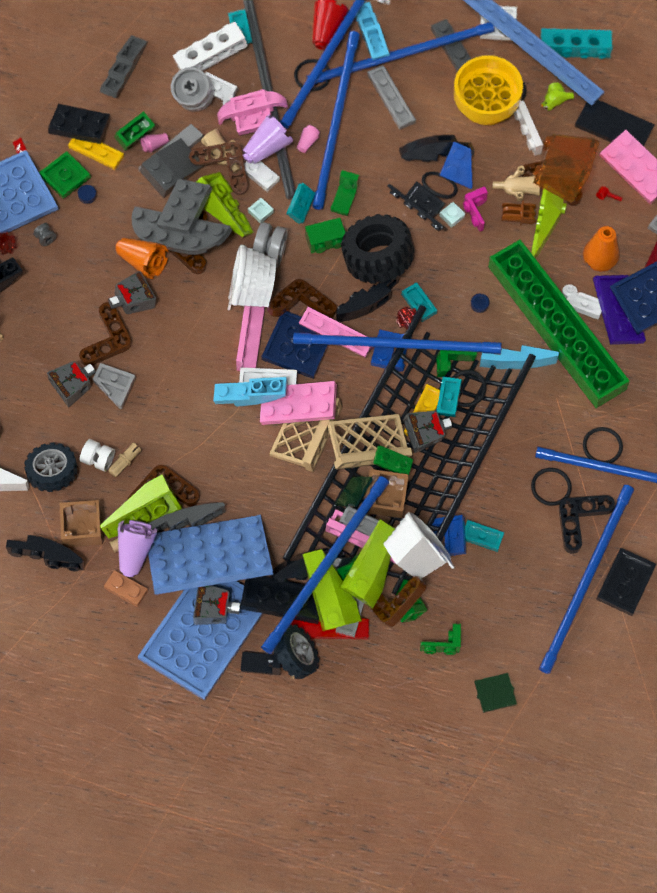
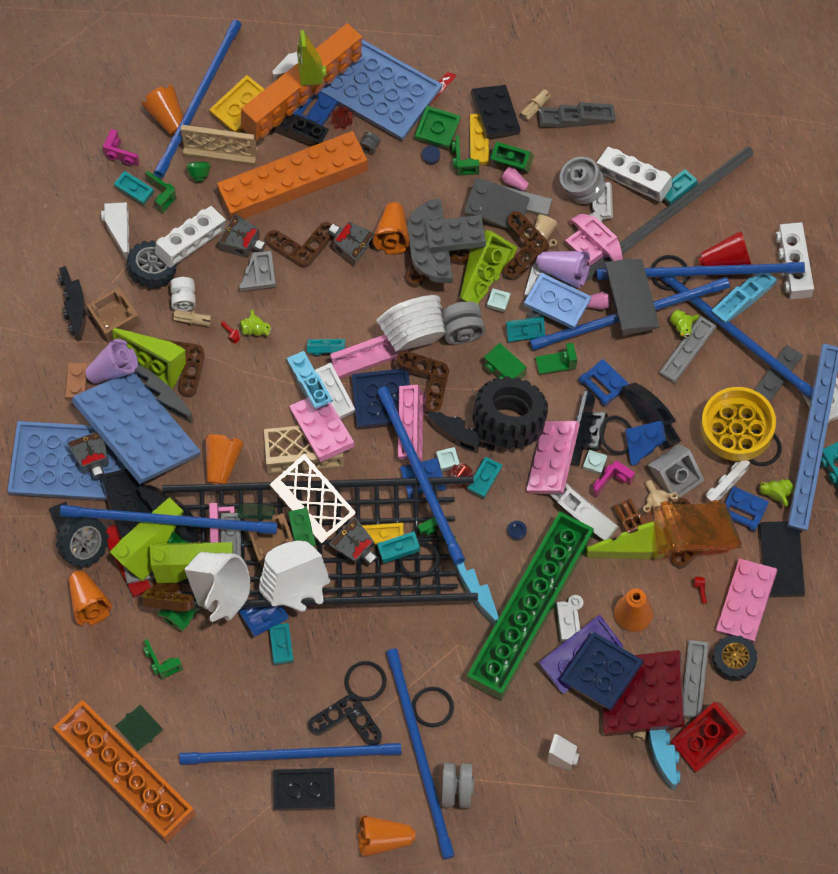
camera: 65 degrees right, 0 degrees up
(38, 311) = (293, 176): none -> orange brick
(45, 419) = (190, 236): none -> white brick
(92, 90) = (535, 104): none -> tan axle
(111, 176) = (464, 167): none -> green bracket
(162, 433) = (234, 335): none -> red hand
(164, 412) = (254, 325): none -> lime animal
(220, 364) = (321, 346): none -> teal plate
(281, 500) = (221, 457): none -> orange cone
(293, 164) = (557, 301): none -> light blue plate
(324, 108) = (632, 296): none -> dark grey slope
(350, 676) = (88, 600): none -> orange cone
(368, 86) = (683, 322): none -> lime animal
(382, 167) = (608, 378): none -> blue plate
(385, 321) = (447, 458): none -> light aqua plate
(435, 489) = (292, 574): none -> white piece
(436, 241) = (553, 457): none -> bright pink plate
(491, 242) = (586, 512): none -> white slope
(496, 158) = (676, 471): none -> light grey slope
(535, 720) = (124, 771): none -> orange brick
(555, 123) = (747, 504): none -> blue plate

